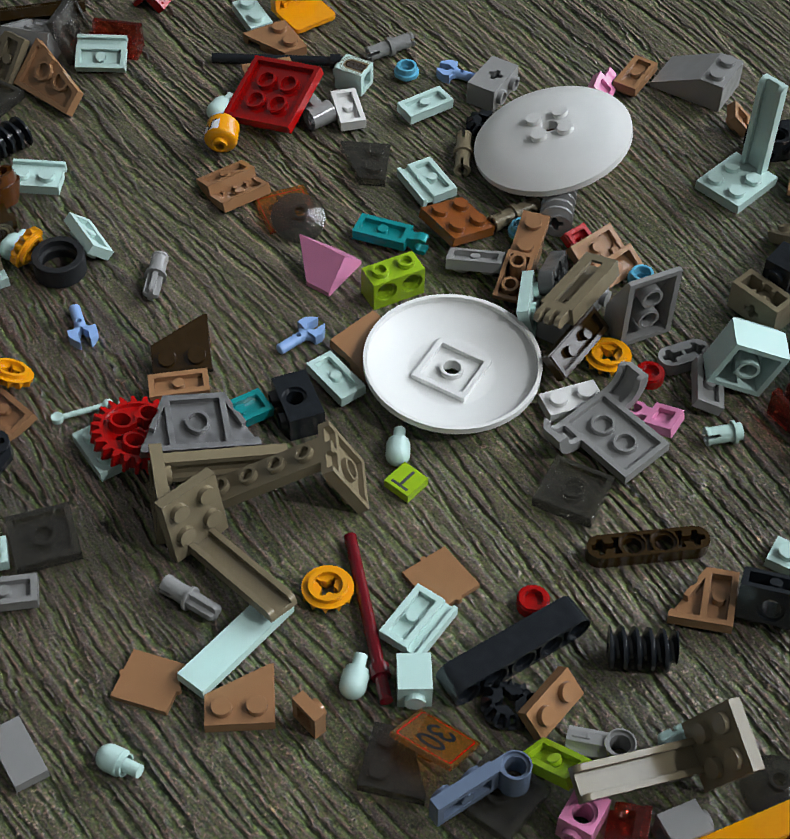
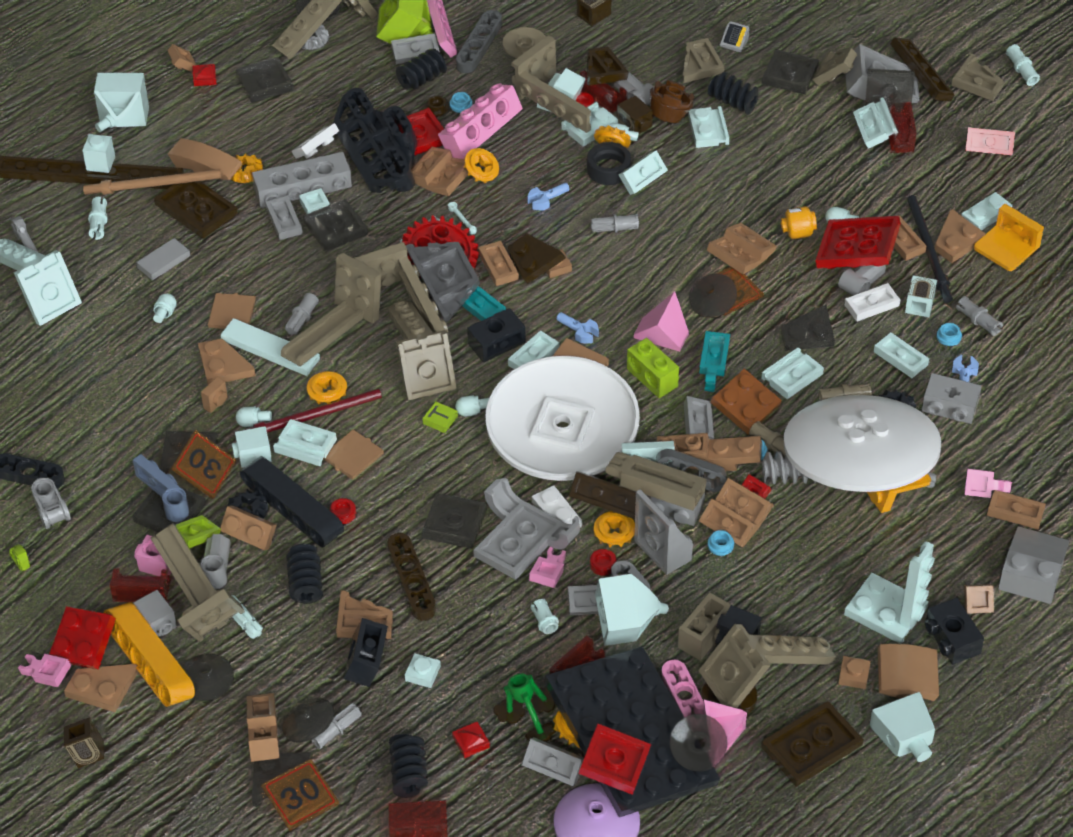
camera: 80 degrees right, 0 degrees up
(48, 80) = (822, 98): medium nougat wing -> none

